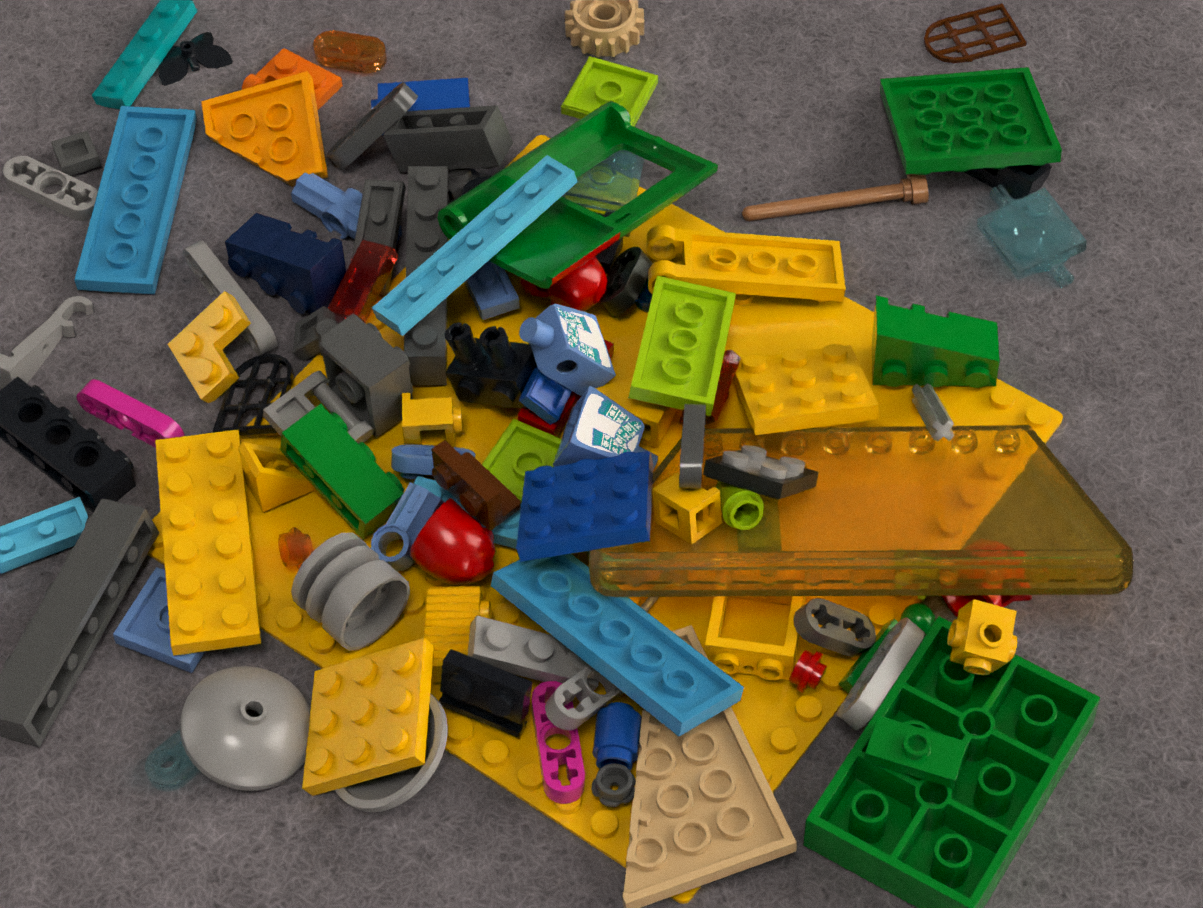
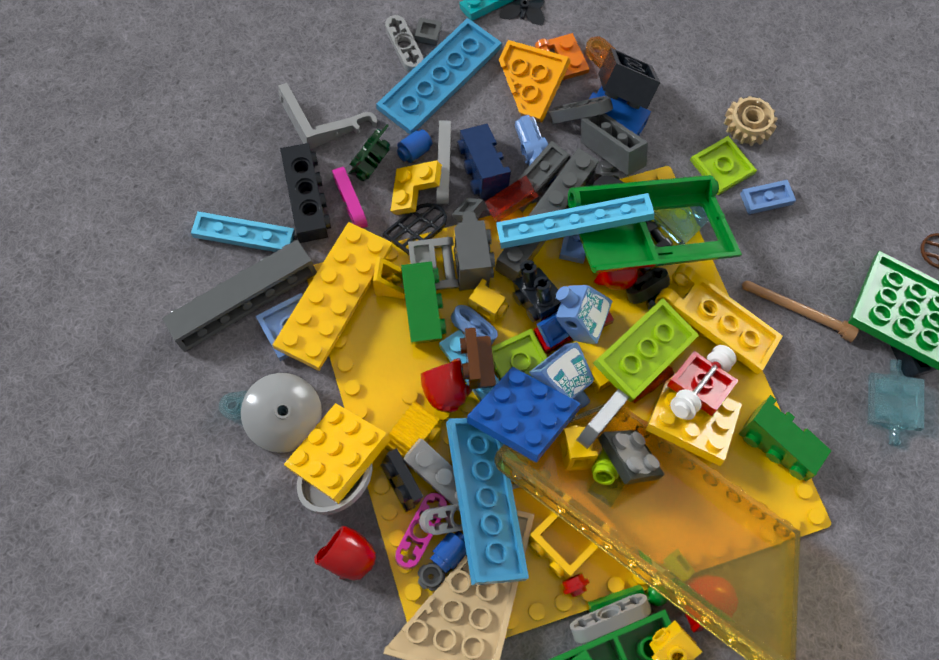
camera: 30 degrees right, 15 degrees up
(118, 344) = (371, 153): none -> dark green hinge
(171, 301) = (414, 146): none -> blue brick
(294, 547) = (373, 328): clear orange plate -> none
(350, 591) = (375, 376): light grey wheel -> none
(405, 524) = (431, 355): medium blue piece -> none
(409, 53) = (628, 79): none -> black brick
(482, 828) = (347, 555): none -> red piece
(695, 97) = (767, 197): none -> medium blue plate
(784, 340) = (703, 383): none -> plate
(835, 622) = (602, 576): dark grey beam -> none
(932, 412) = (751, 485): light grey axle -> none

